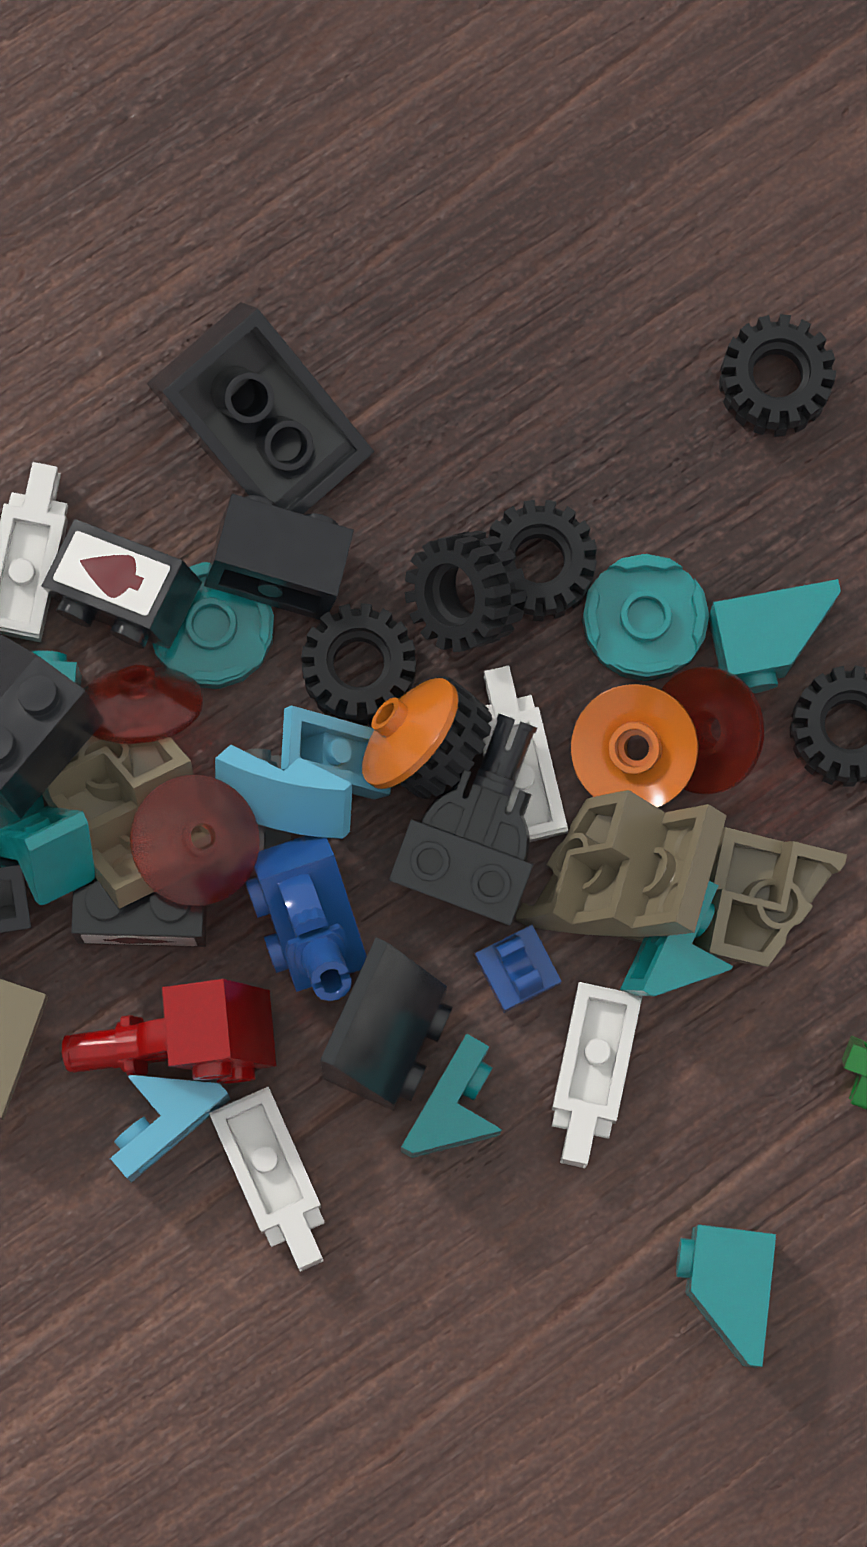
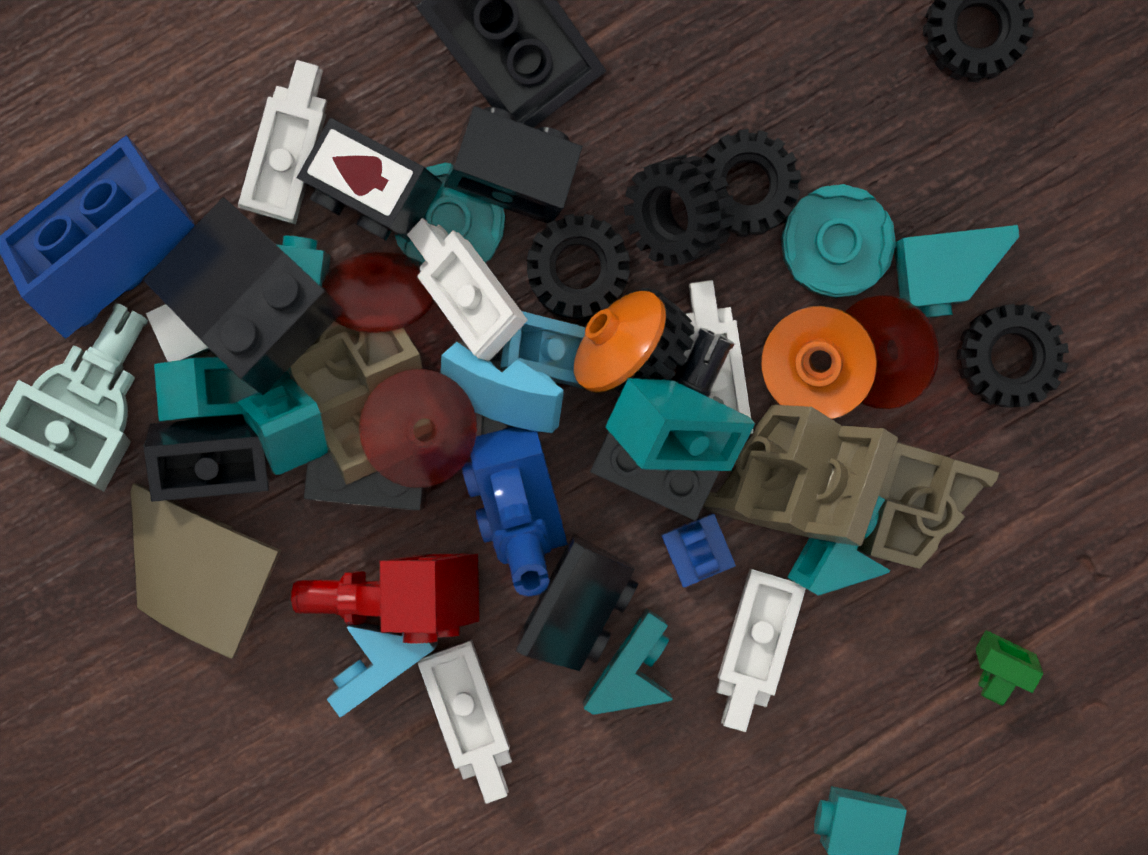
camera: 10 degrees right, 10 degrees up
(237, 690) = (466, 290): none -> white hinge
(481, 817) = (677, 427): none -> teal slope

